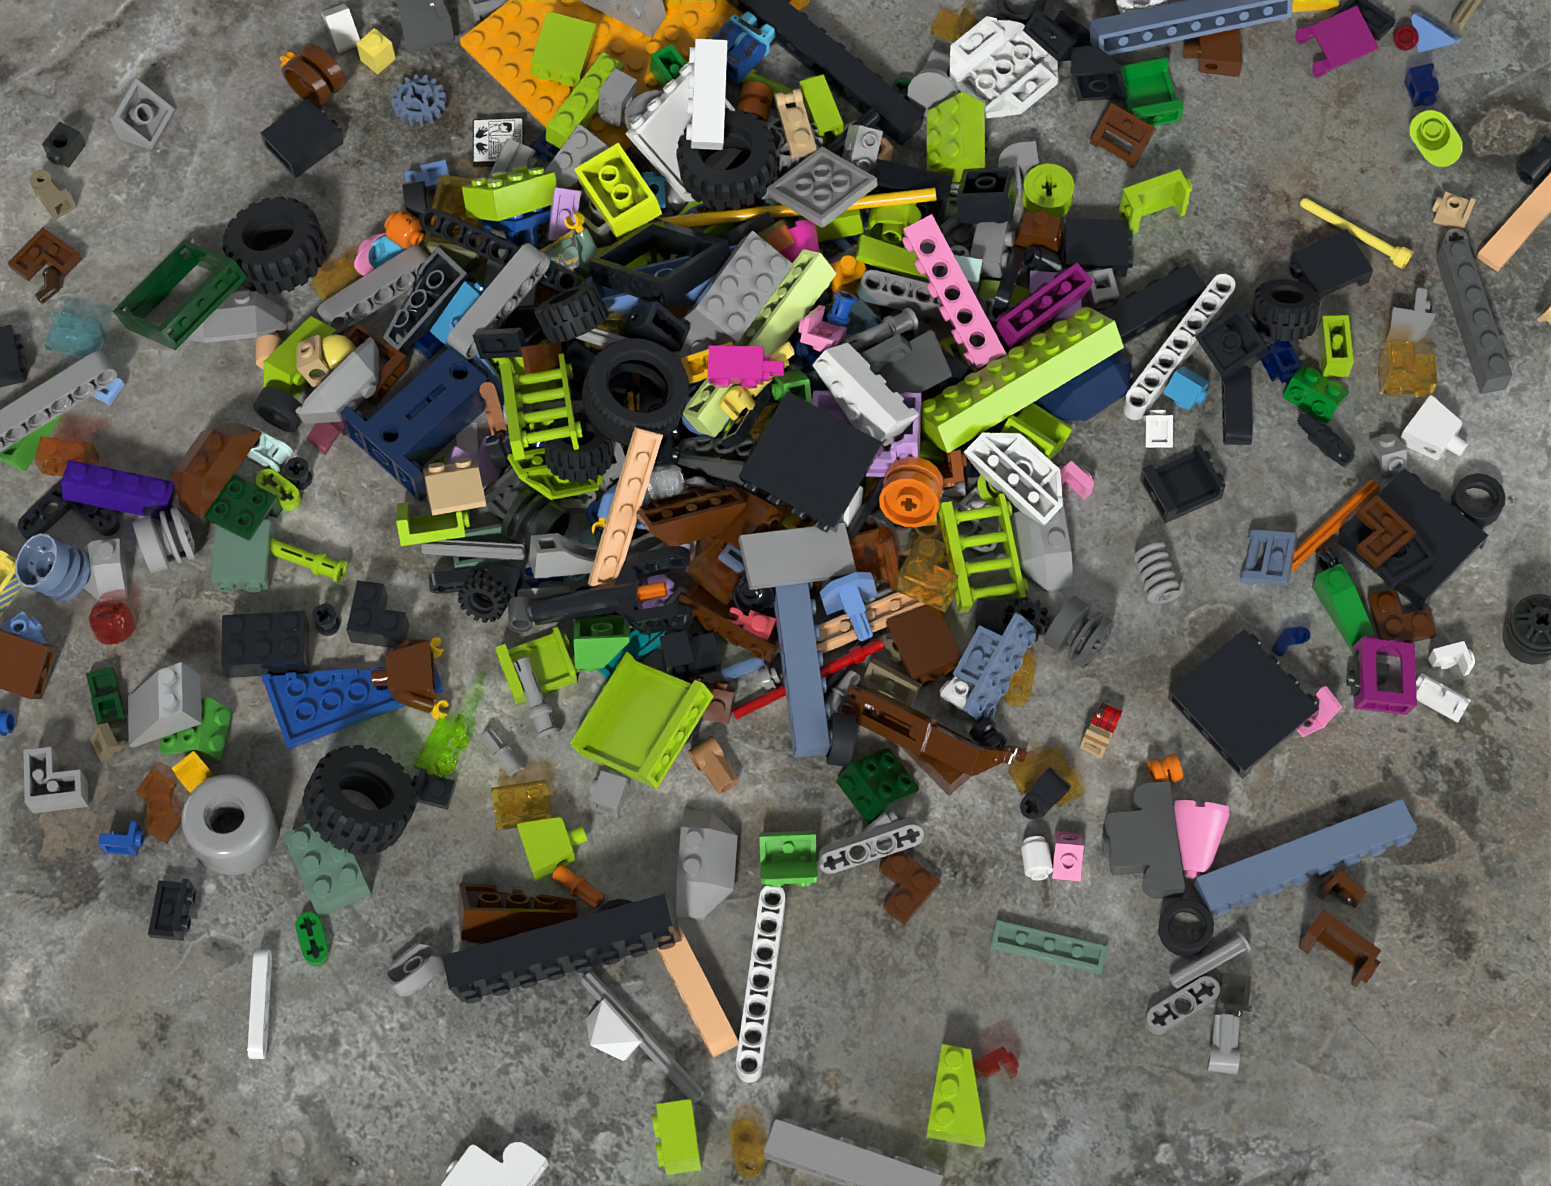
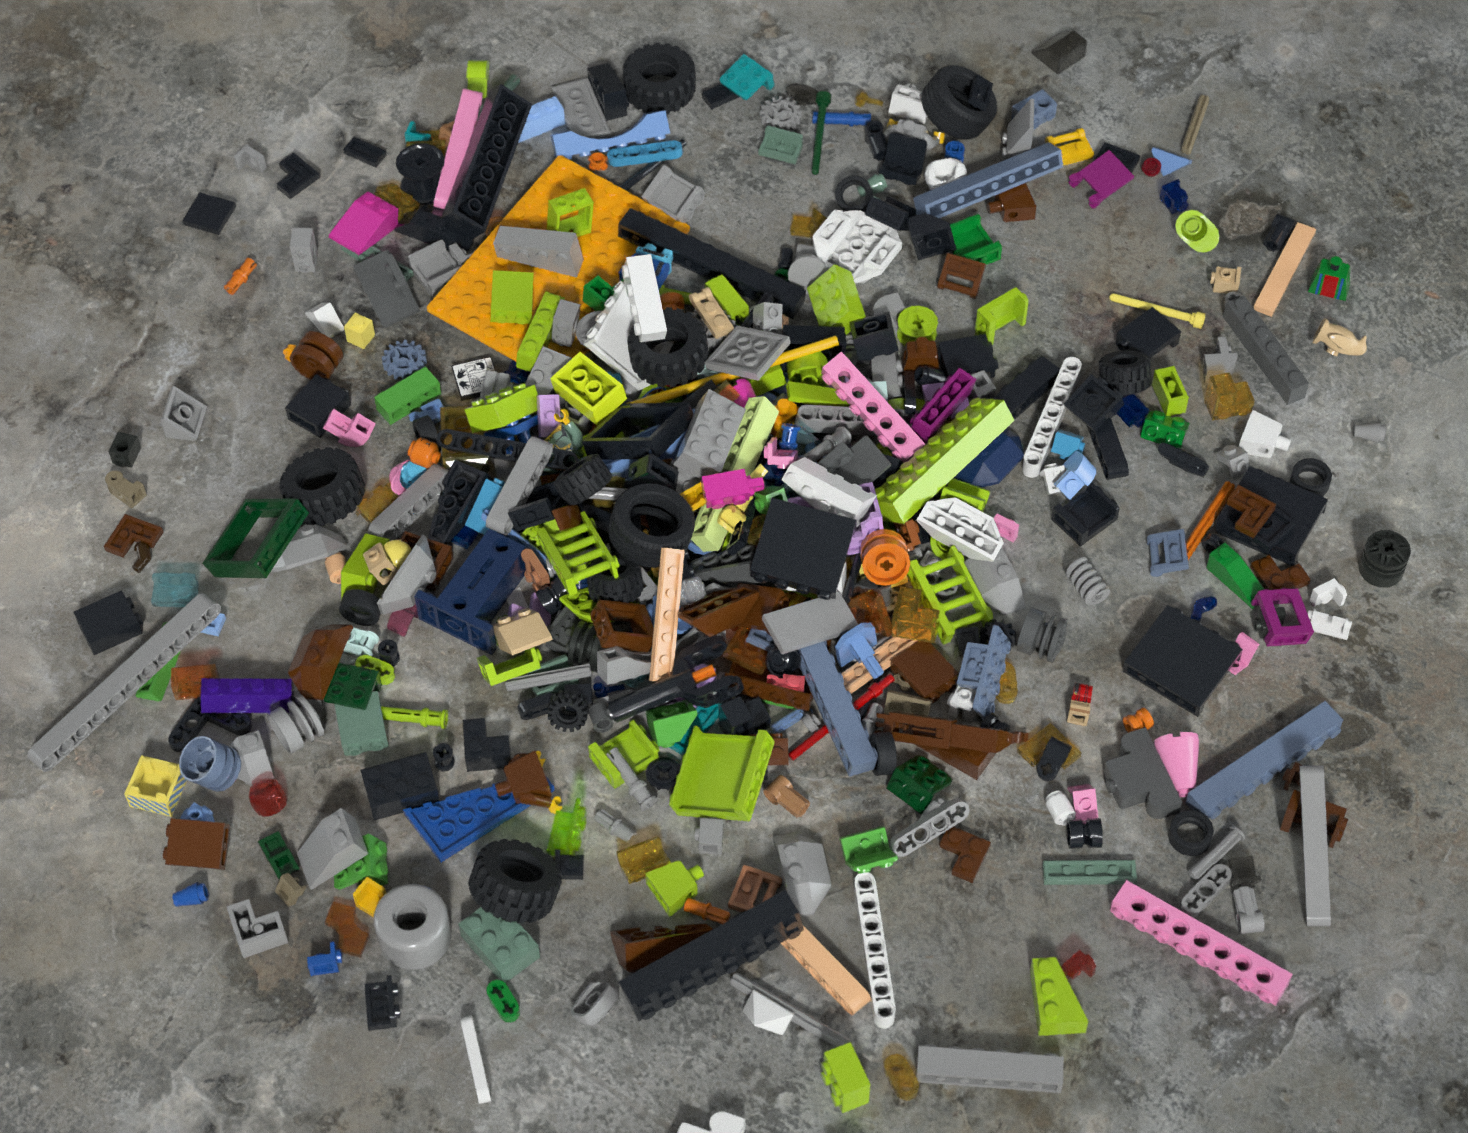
camera: 15 degrees left, 10 degrees down
(330, 179) = (352, 431): none -> bright pink brick
(410, 147) = (407, 395): none -> bright green brick
(564, 699) = (663, 765): none -> black gear
(596, 507) = (635, 614): none -> reddish brown window
(635, 869) = (748, 887): none -> nougat plate
(914, 65) = (786, 258): none -> black pin
(1055, 898) = (1084, 833): none -> black wheel
(1088, 991) = (1213, 941): none -> bright pink brick
(1188, 431) = (1077, 474): none -> light blue brick
(1328, 986) = (1315, 846): none -> light grey beam

